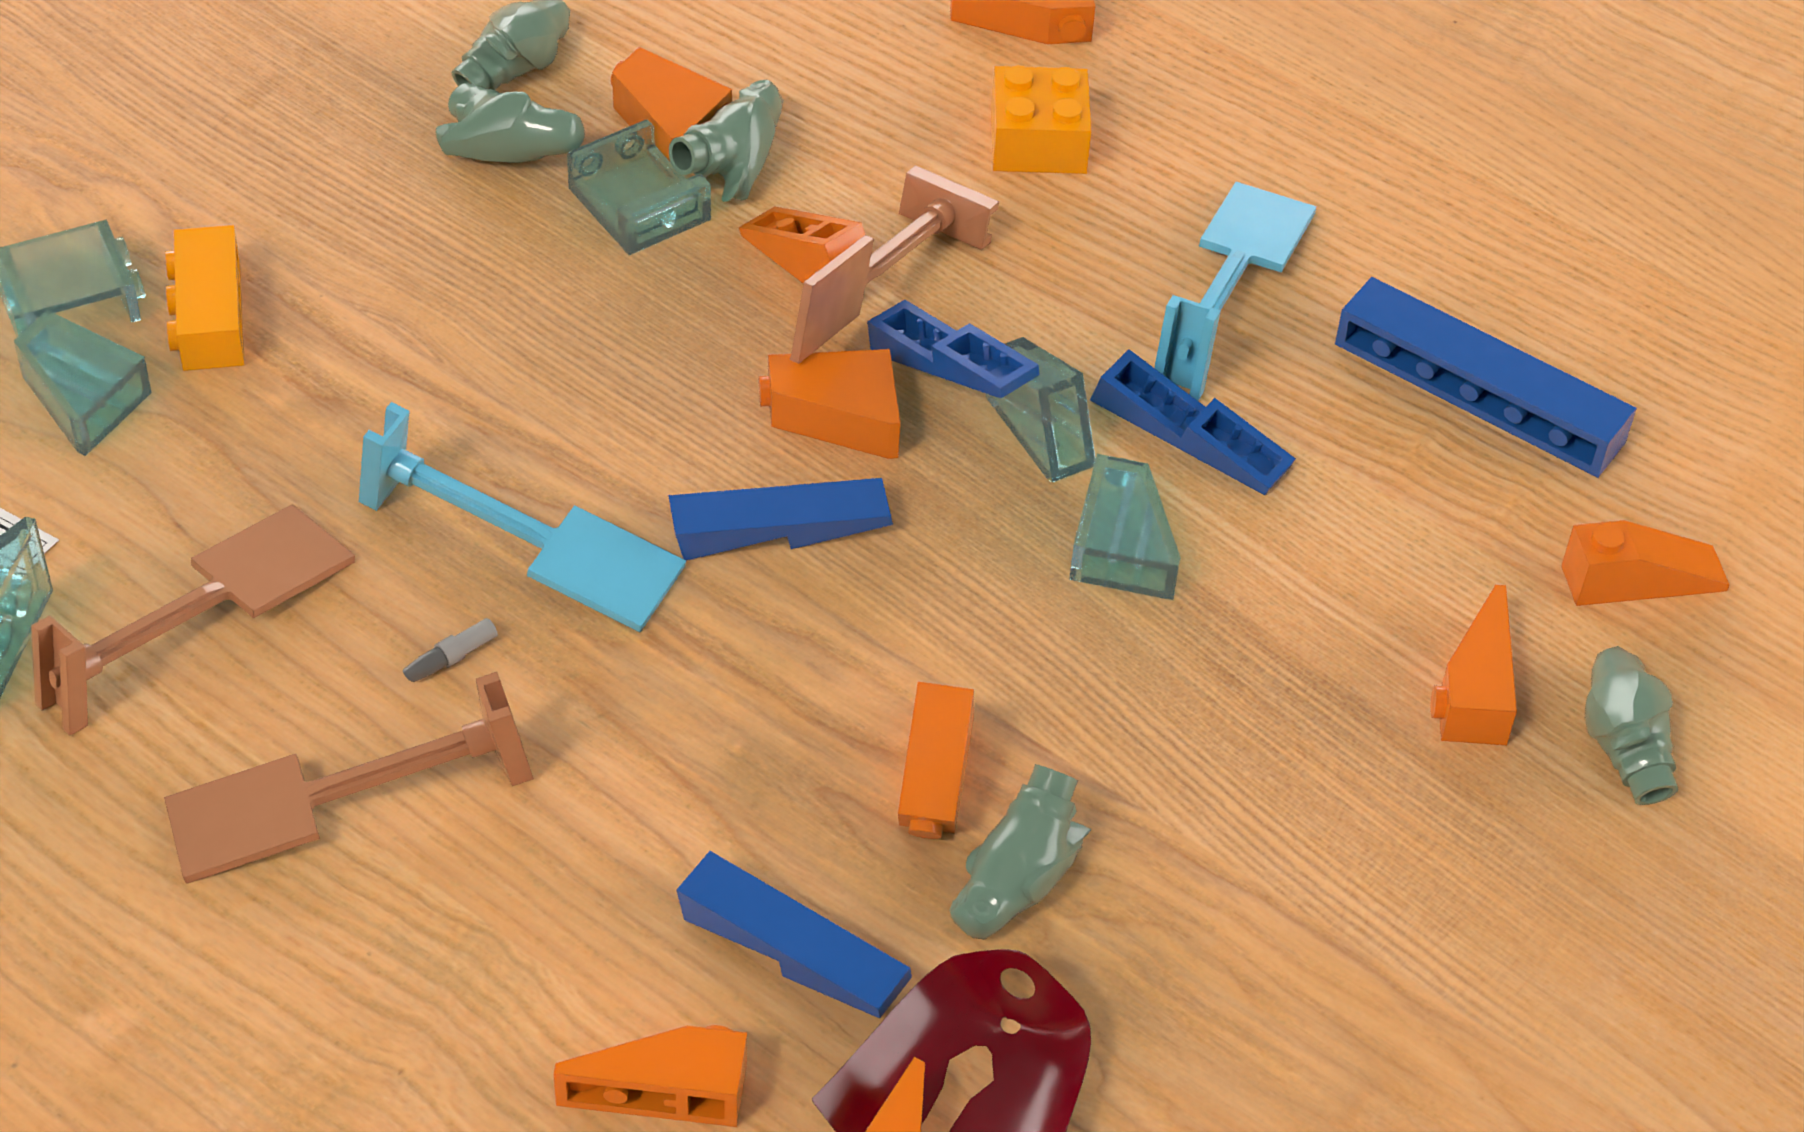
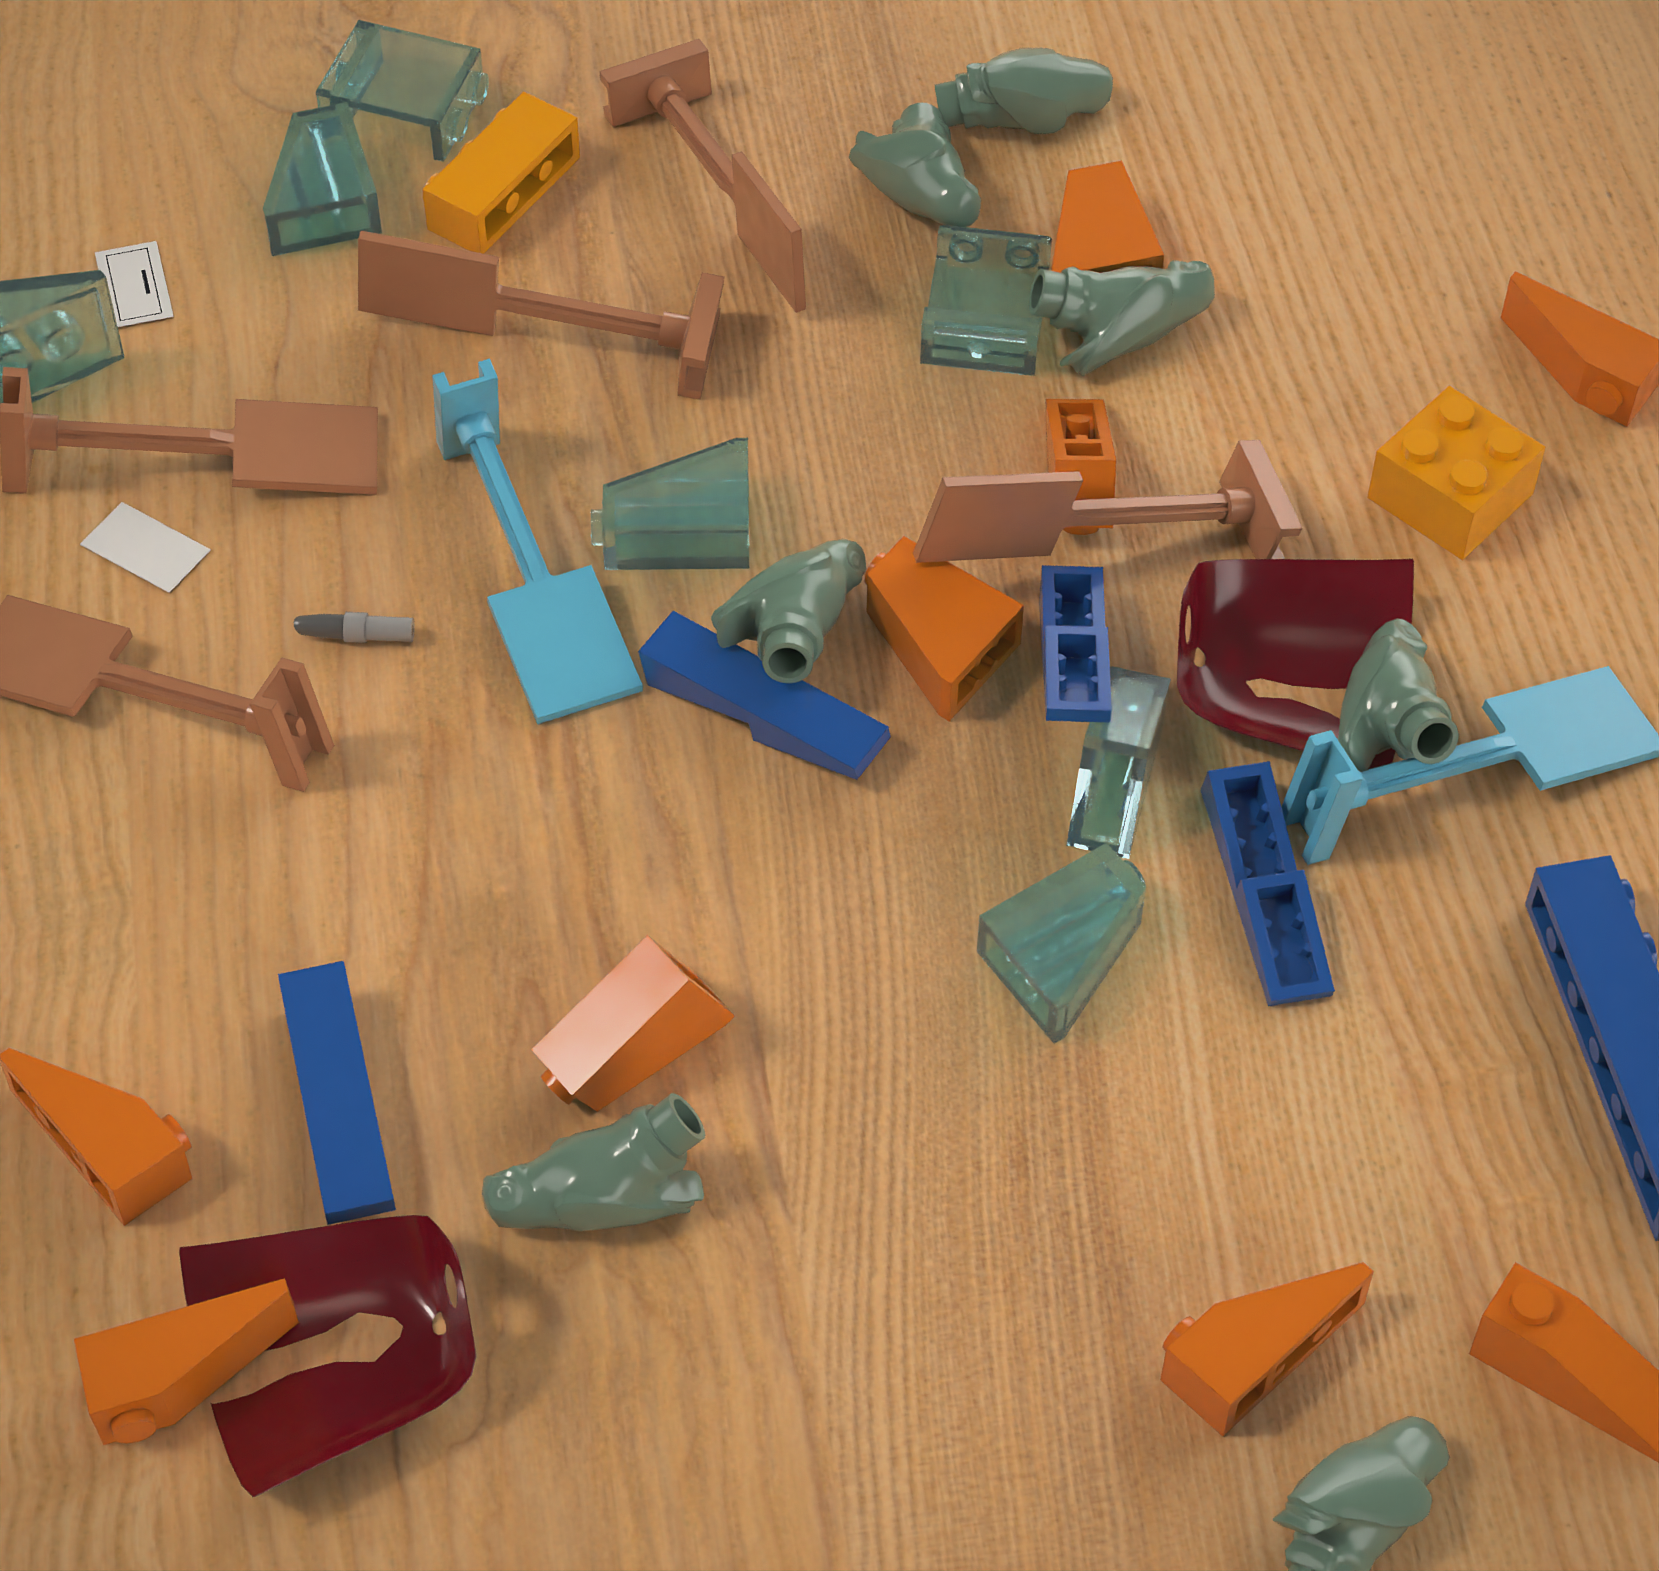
camera: 45 degrees right, 5 degrees up
(225, 702) = (145, 547): none -> white sticker
(284, 380) = (463, 293): none -> nougat piece
(436, 213) = (665, 85): none -> nougat piece
(597, 436) = (679, 513): none -> clear light blue slope
(749, 445) = (792, 607): none -> sand green animal
(1054, 263) = (1288, 626): none -> dark red piece
(1159, 266) = (1395, 702): none -> sand green animal

